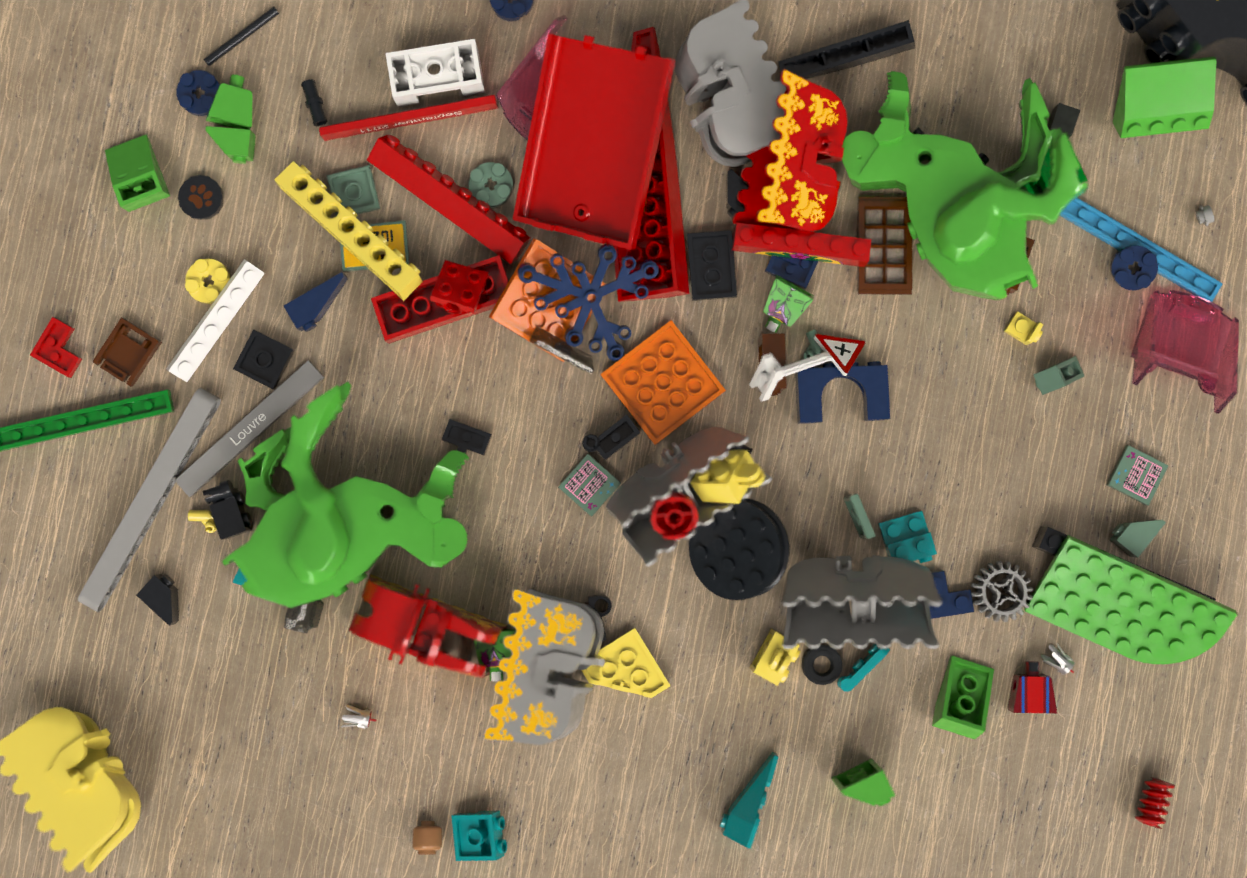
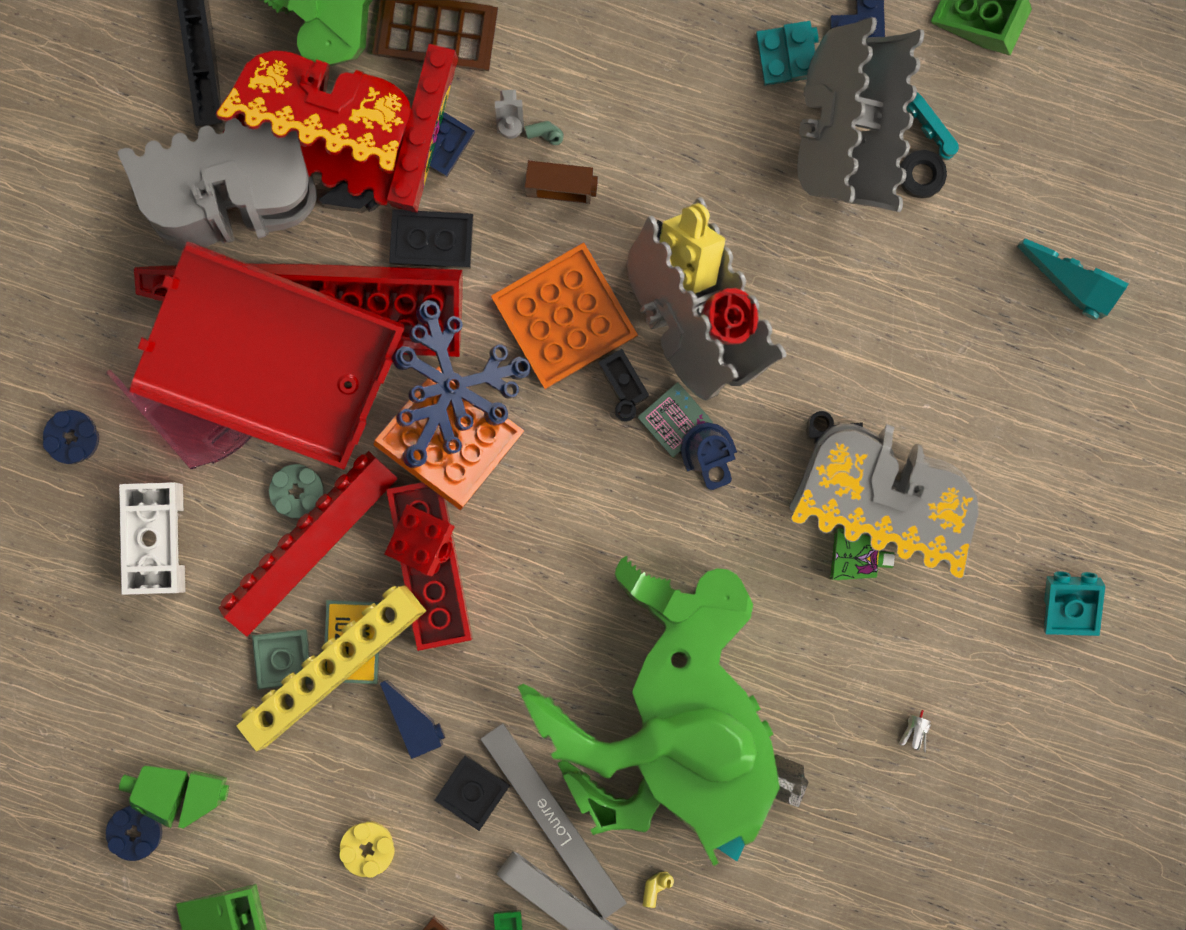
camera: 90 degrees left, 0 degrees up
(200, 197) = (263, 846): black tile -> none
(215, 321) = (417, 845): white plate -> none
(228, 510) = (649, 857): black hinge -> none
(241, 36) = (70, 772): black bar -> none
(314, 102) = (166, 693): black pin -> none
(396, 617) = (816, 646): red animal -> none
(408, 117) = (201, 580): red tile -> none
(427, 838) = (1069, 666): medium nougat head -> none
(466, 437) = (599, 559): black plate -> none
(562, 350) = (510, 429): clear smoke slope -> none
(568, 514) = (705, 448): none -> dark blue container
(628, 667) = (897, 400): light yellow plate -> none
(741, 551) = (780, 247): black wheel -> none
(773, 659) = (909, 229): light yellow brick -> none
(785, 303) = (489, 157): bright green torso -> none
(822, 314) = (509, 114): none -> light grey hips
(836, 349) = (553, 103): white piece -> none
(859, 516) = (754, 105): sand green tile -> none
(865, 783) = (1068, 140): bright green slope -> none
(870, 379) = (594, 69): dark blue arch -> none

